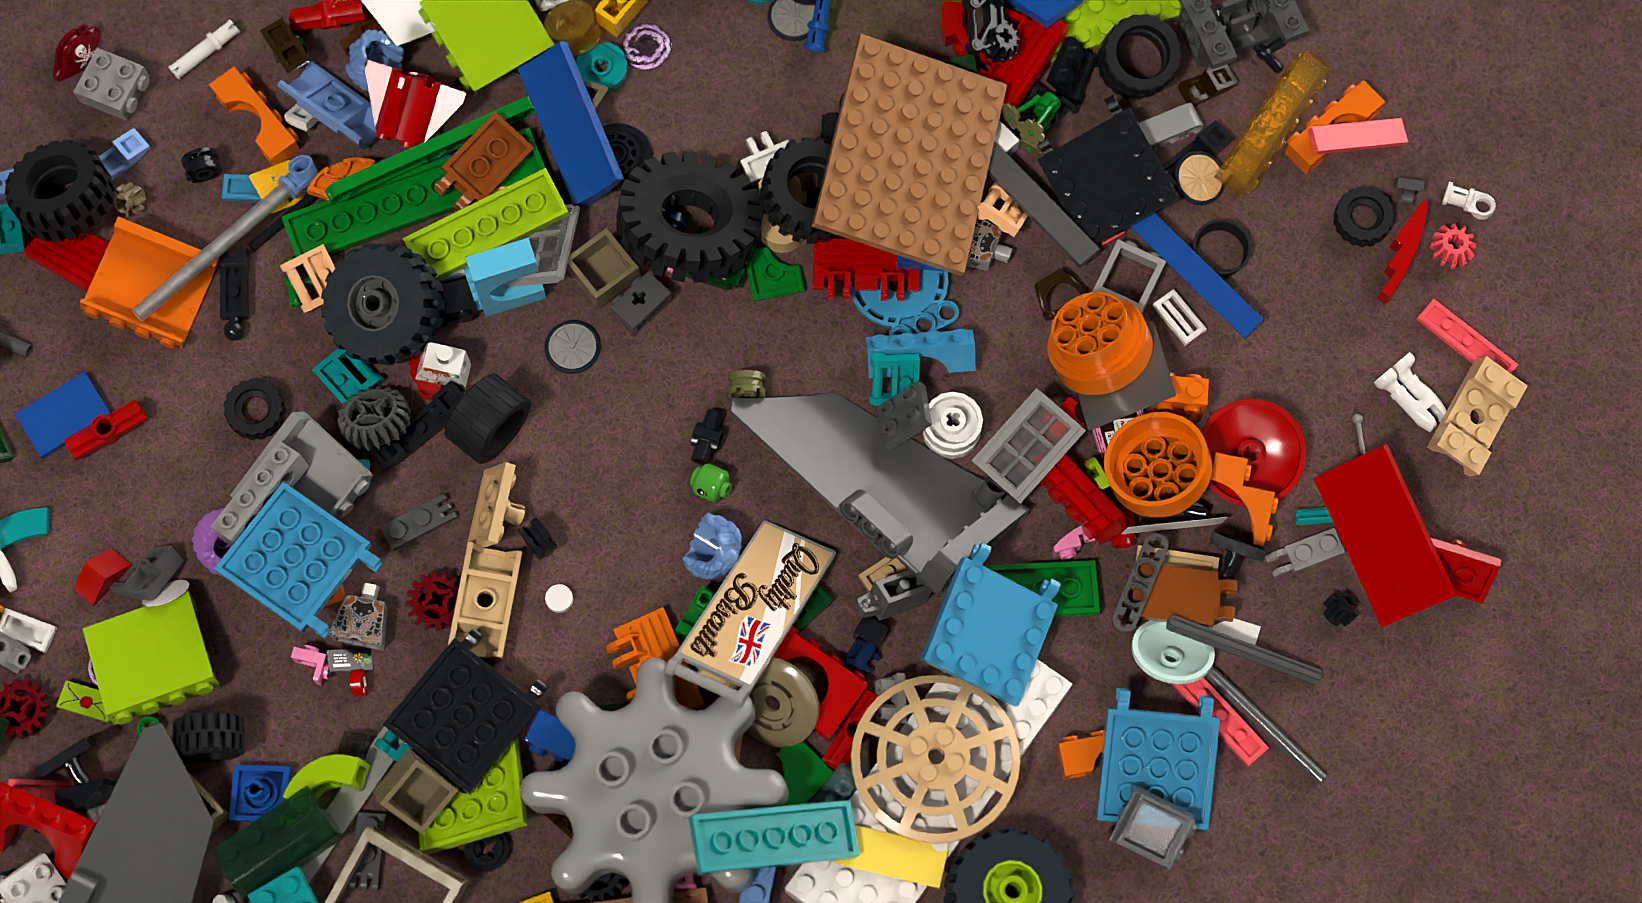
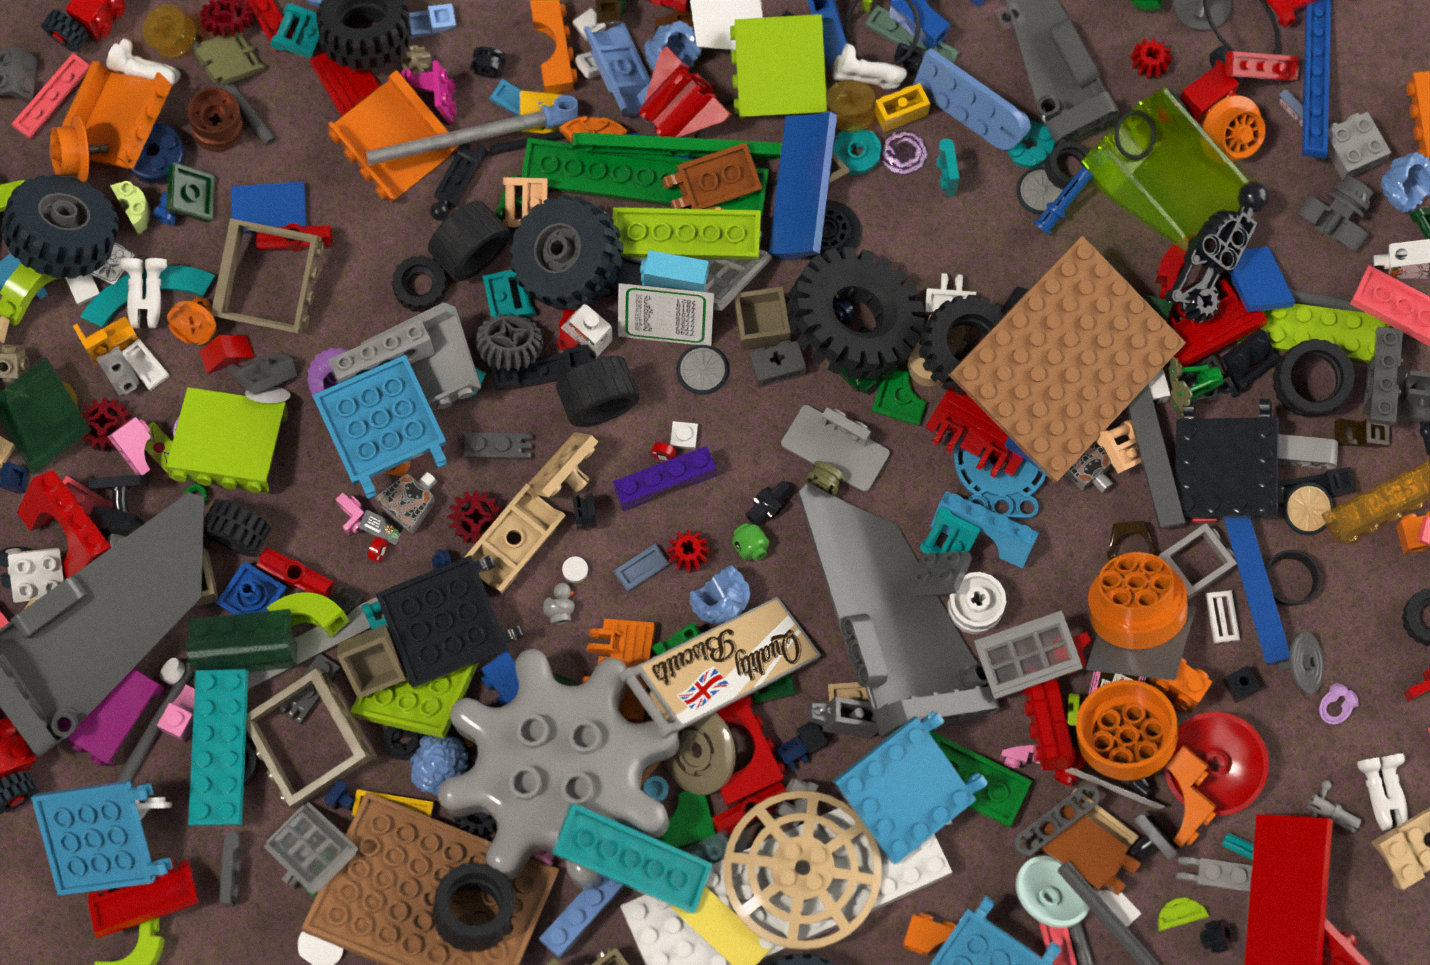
camera: 30 degrees right, 0 degrees up
(50, 563) = (192, 321): none -> orange tile
(57, 712) = (131, 442): none -> bright pink arch
(58, 493) = (229, 265): none -> dark tan window
(163, 209) = (436, 82): none -> dark pink plate
(273, 749) = (282, 566): none -> red piece
(274, 75) = (589, 19): none -> white plate
(281, 342) = (468, 240): none -> black tyre
(425, 658) = (440, 559): none -> dark blue plate
(510, 312) = (665, 314): none -> white sticker
(533, 852) = (437, 761): none -> medium blue hair
(567, 642) = (560, 608): none -> light grey animal
(580, 443) = (662, 451): none -> red tile
(584, 478) = (647, 483): none -> dark purple arch
(590, 417) = (684, 435): none -> white plate
(621, 562) = (641, 568): none -> sand blue tile
(666, 517) = (688, 541): none -> red gear
(698, 37) = (948, 165): none -> teal plate
(738, 346) = (837, 442): none -> light grey bracket
(753, 759) = (656, 788): none -> medium azure tile
(1226, 374) = (1238, 691): none -> black plate
(1277, 318) = (1305, 662): none -> dark grey shield
(1294, 606) = (1180, 912): none -> lime tile
(1336, 332) = (1335, 691): none -> lavender piece
(1377, 439) = (1333, 812): none -> light grey pin

